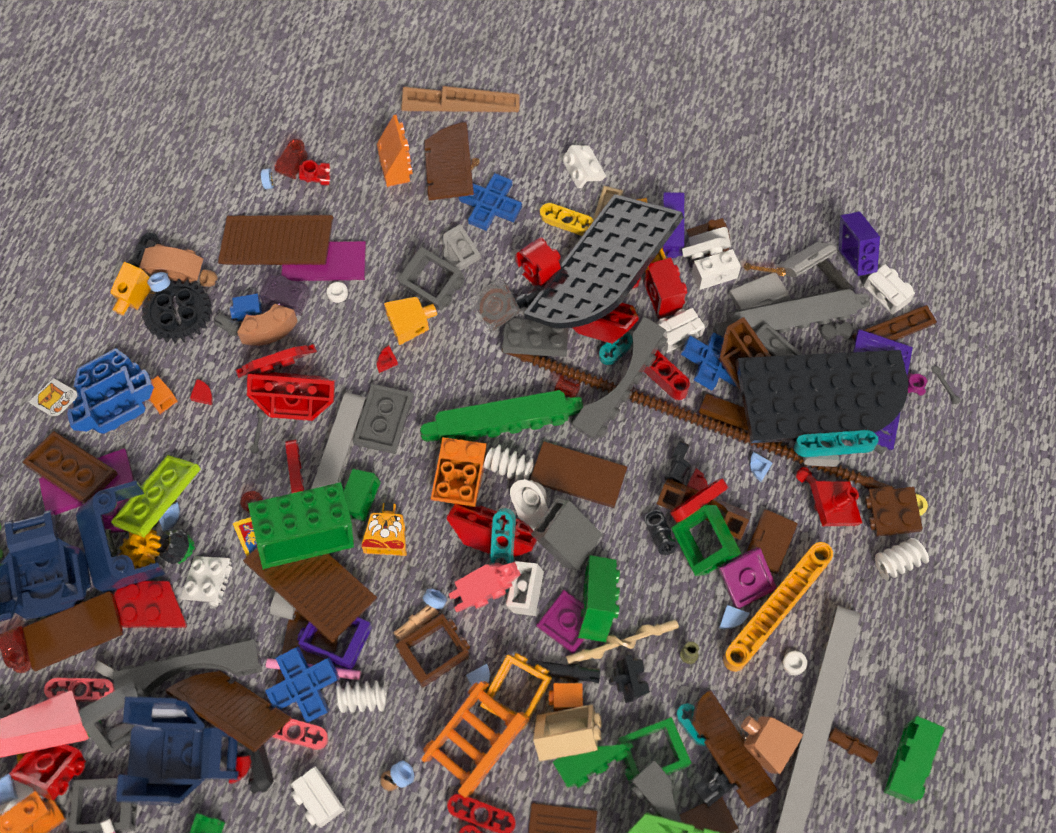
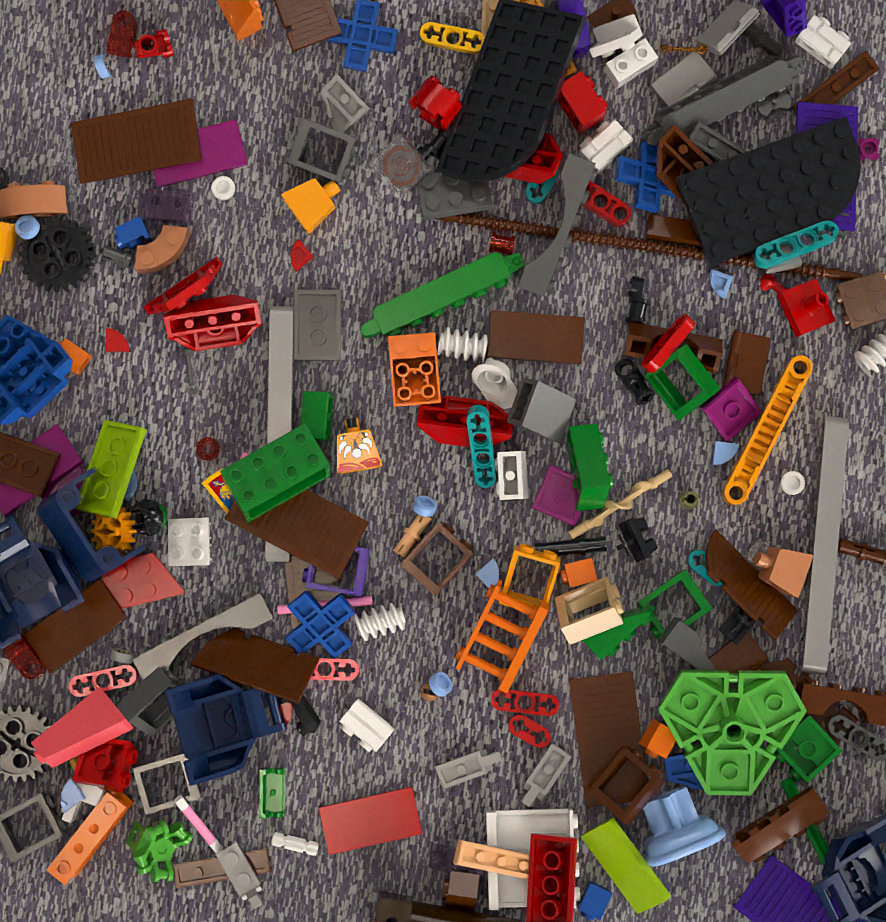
camera: 15 degrees left, 20 degrees up
(208, 278) = (76, 206): medium nougat hinge -> none
(294, 466) = (242, 405): red beam -> none
(484, 584) = (472, 483): coral hinge -> none
(697, 480) = (660, 316): red tile -> none

